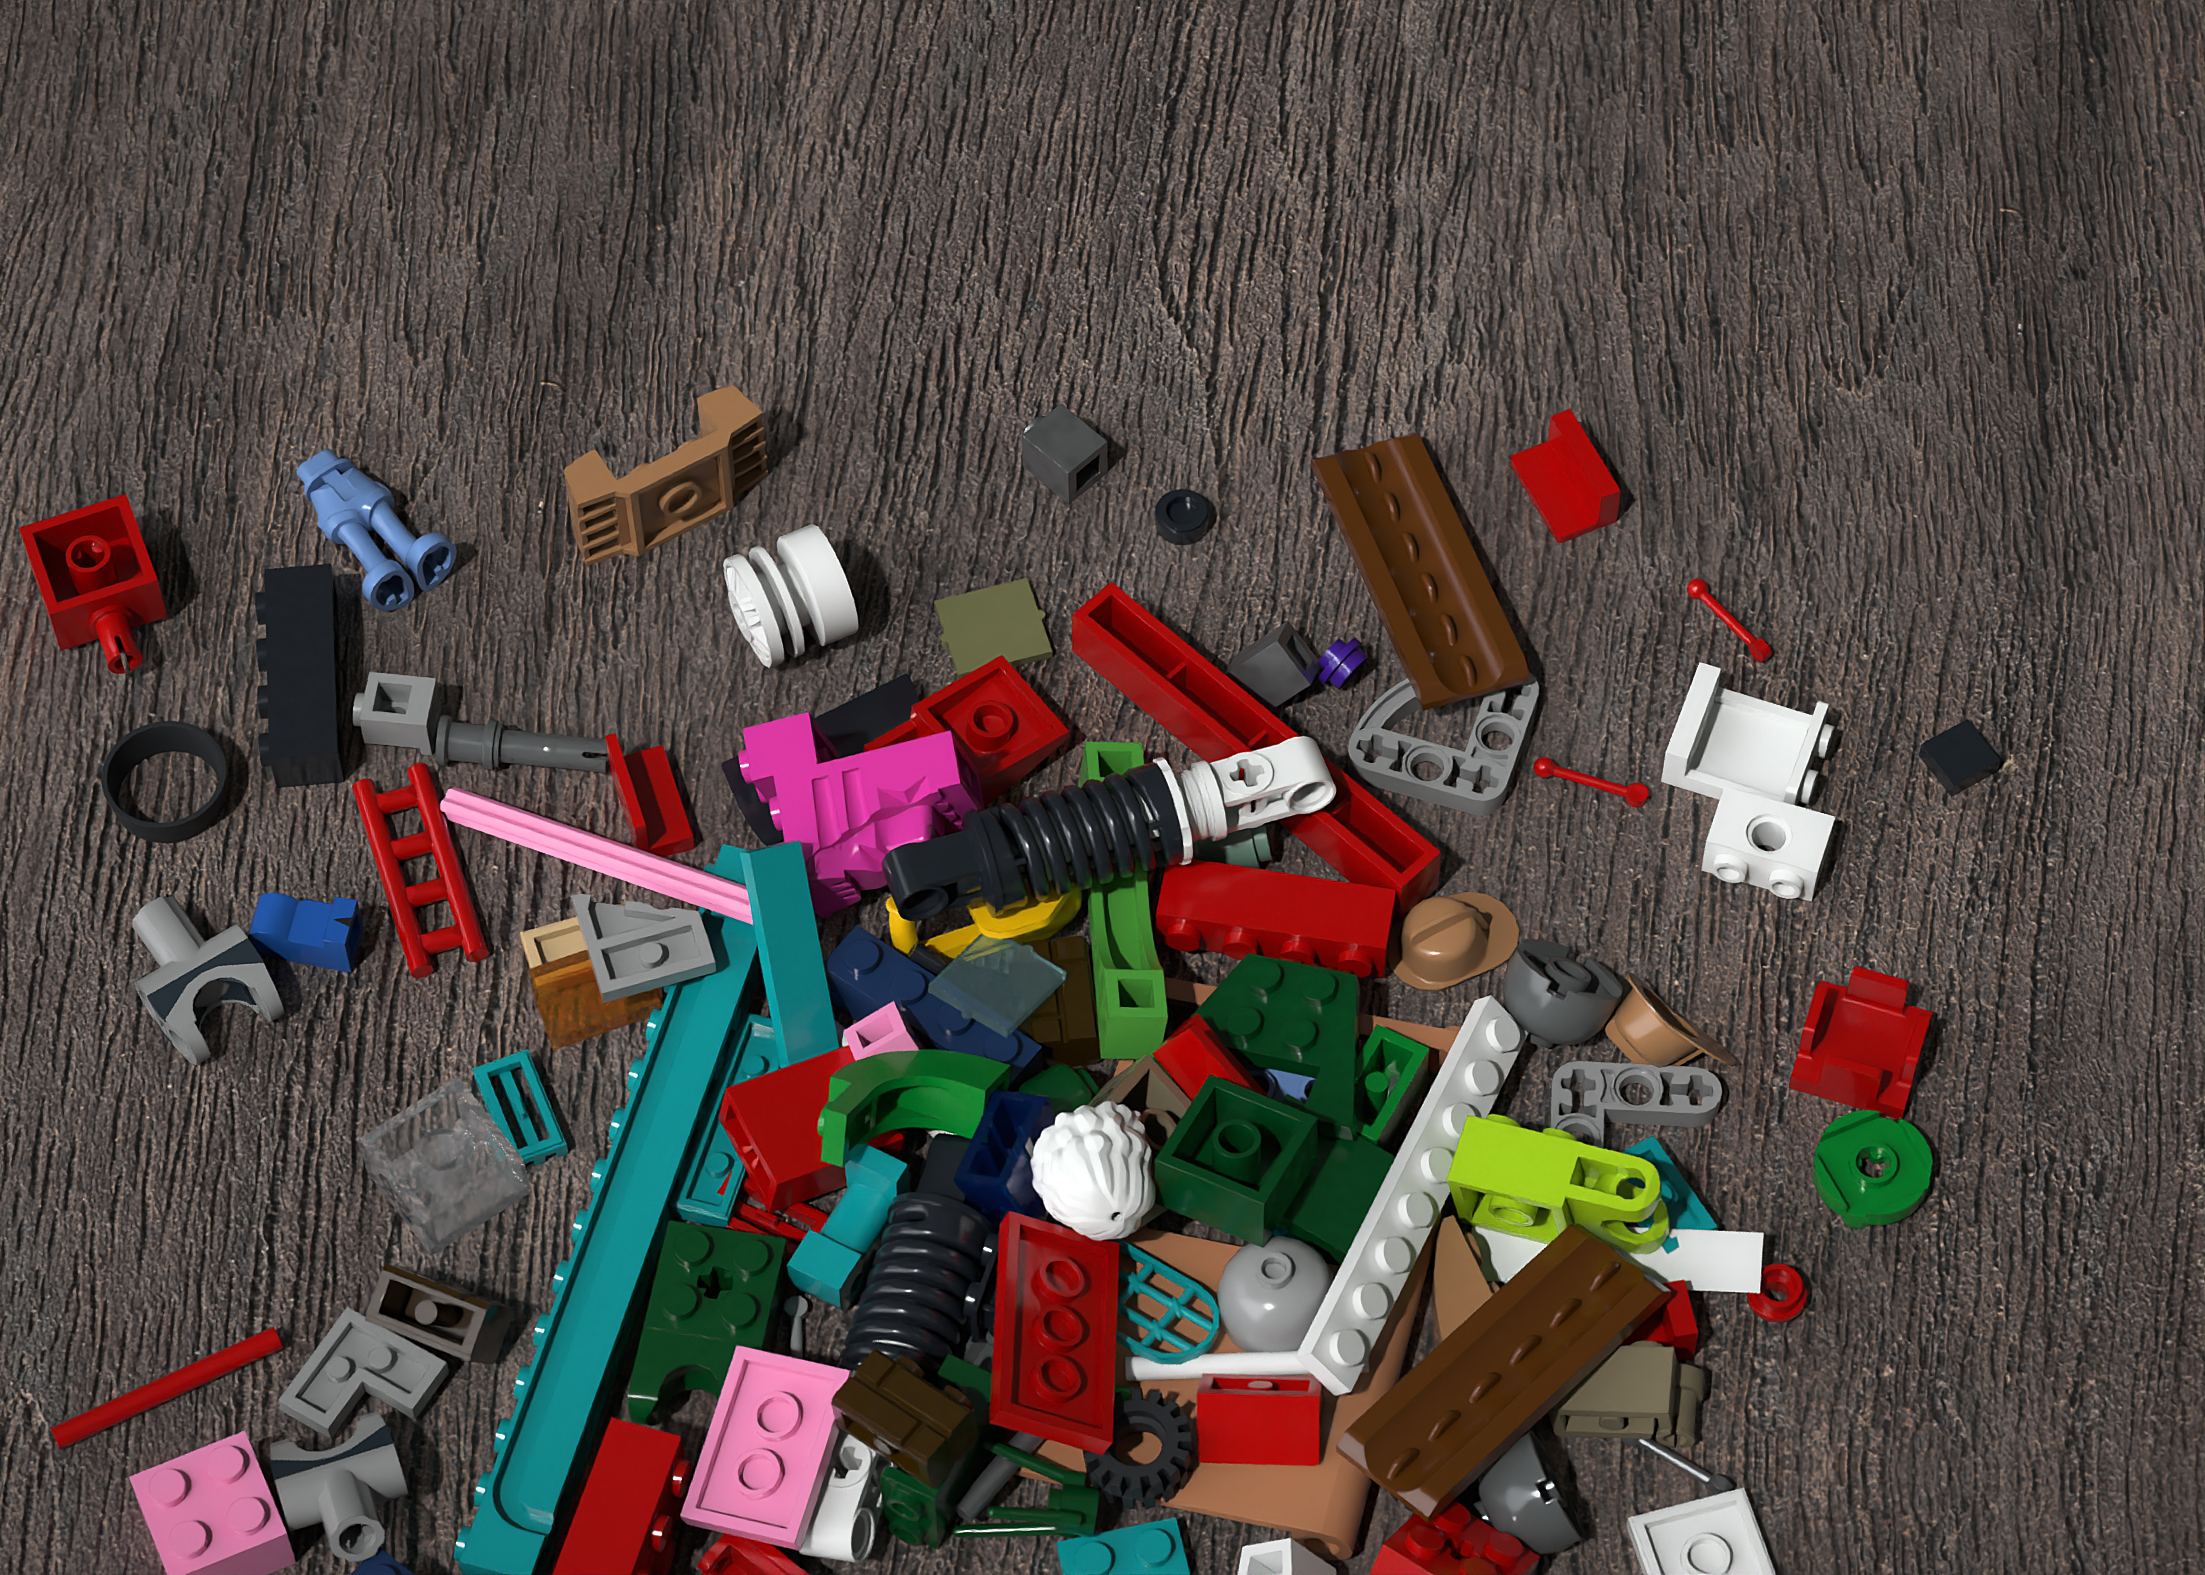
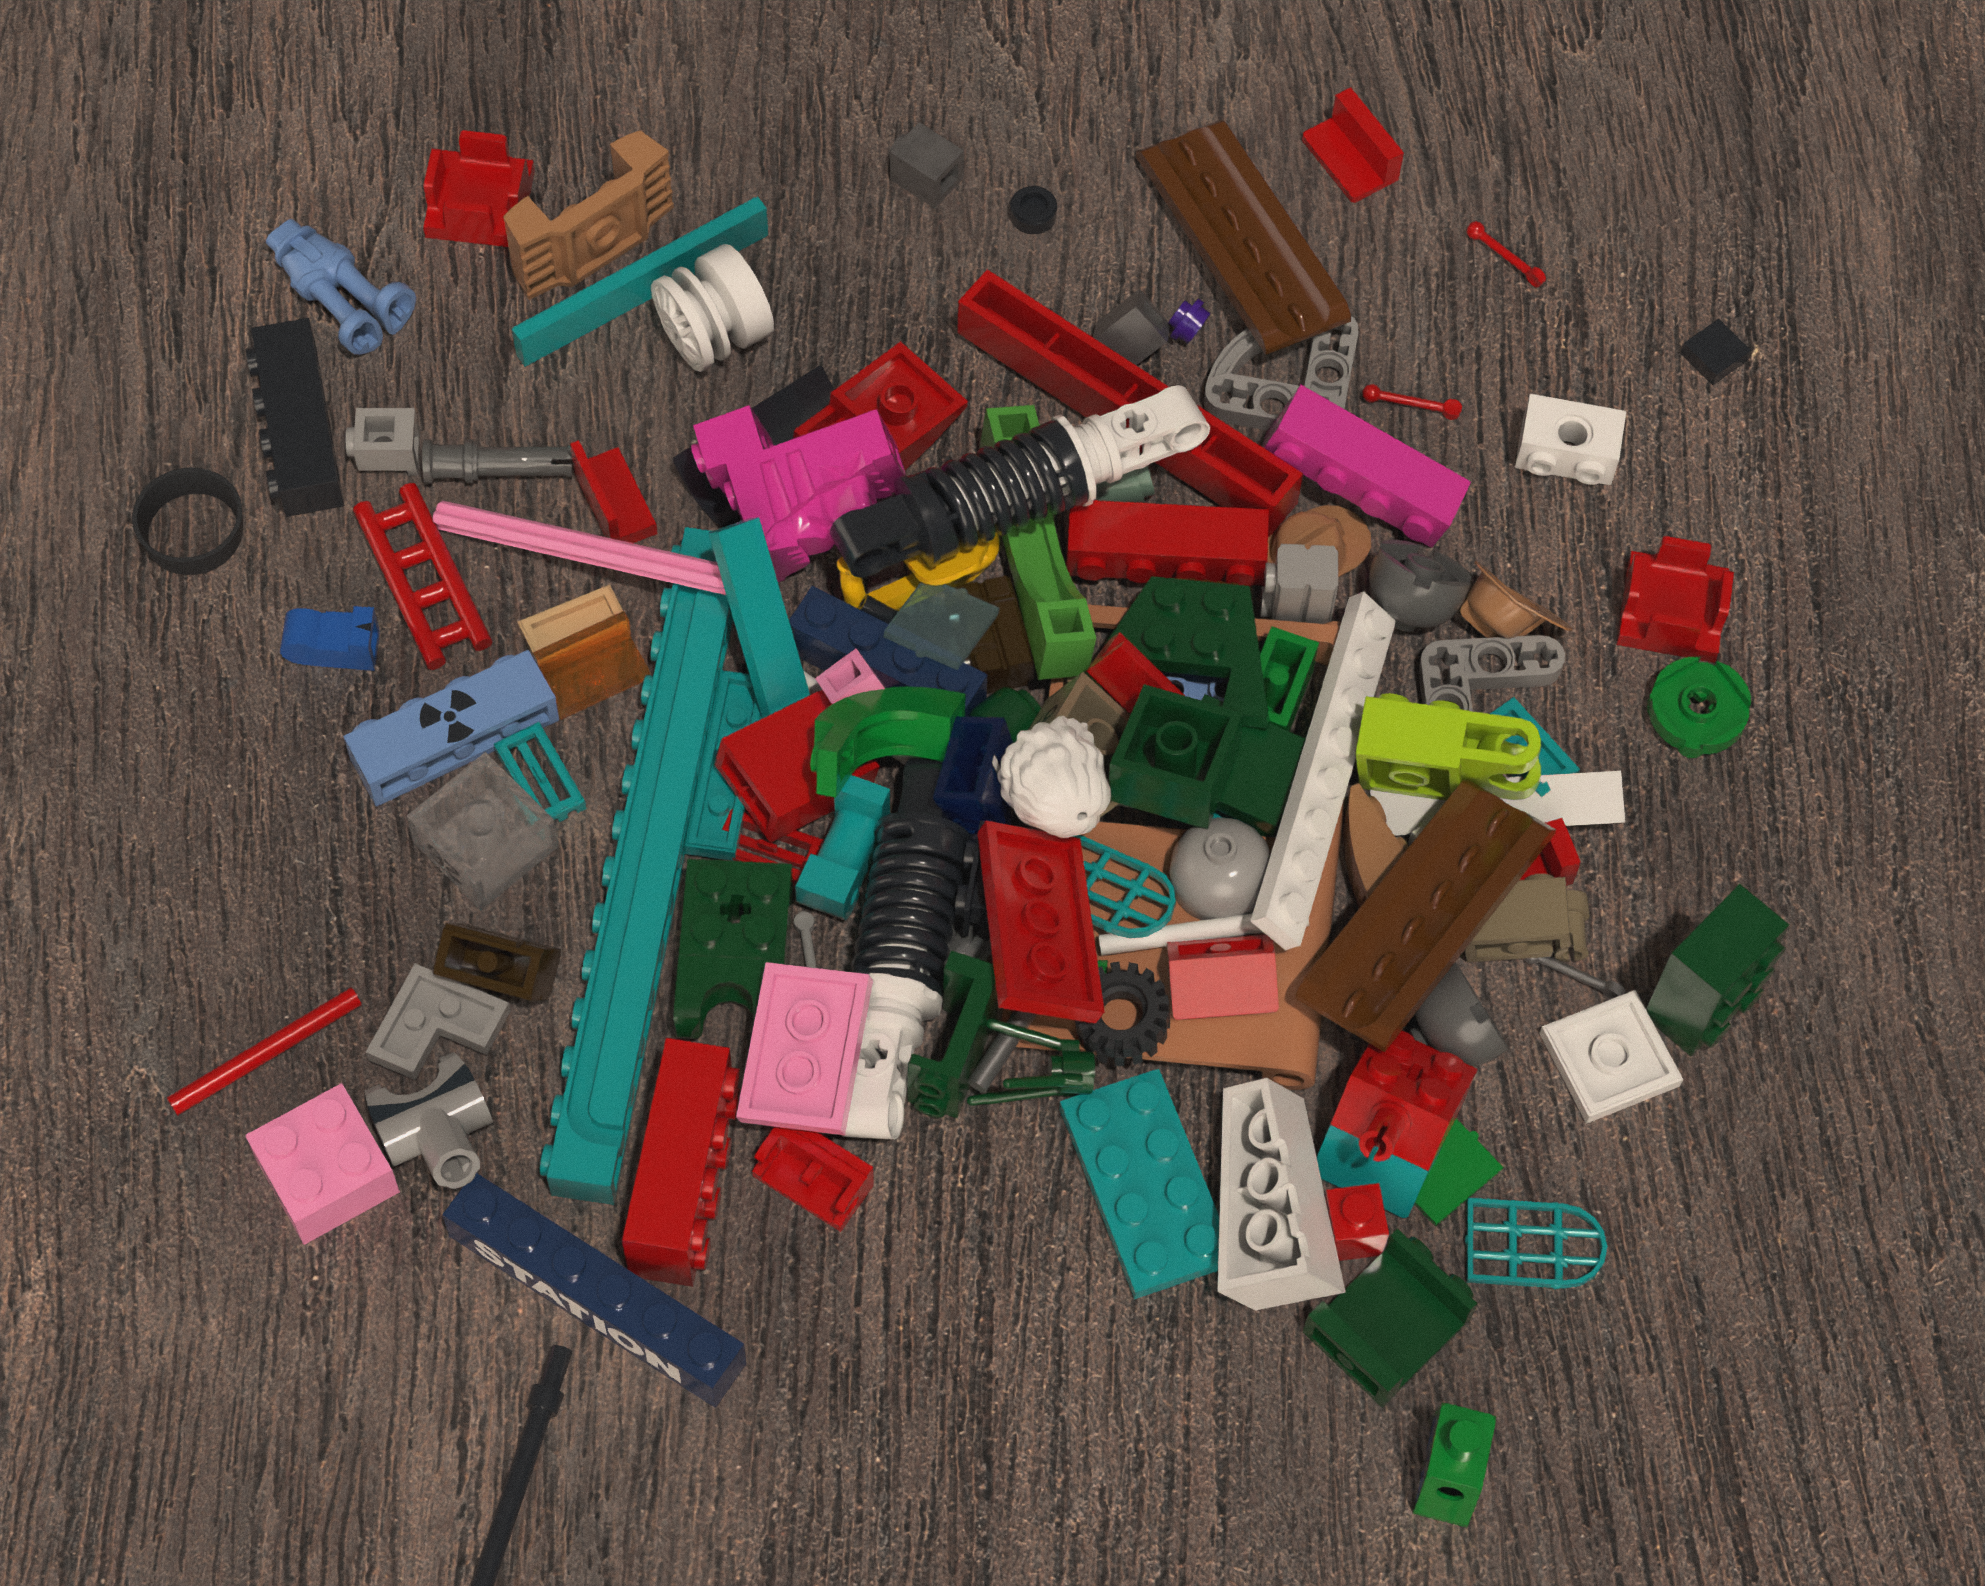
camera: 10 degrees left, 5 degrees up
(95, 578) = (102, 349): red brick -> none
(198, 975) = (241, 687): light grey connector -> none
(425, 1044) = (450, 727): none -> medium blue brick
(540, 433) = (474, 189): none -> red panel
(641, 946) = (629, 622): light grey wing -> none
(702, 560) = (632, 284): none -> teal tile
(906, 1417) = (925, 1010): dark brown brick -> none
(993, 624) = (885, 316): olive piece -> none
(1419, 979) = (1300, 584): none -> light grey brick
(1519, 851) = (1366, 466): none -> dark pink wedge
(1744, 743) = (1537, 357): white panel -> none
(1783, 1279) = (1643, 810): red plate -> none
(1832, 1473) = (1717, 971): none -> dark green brick

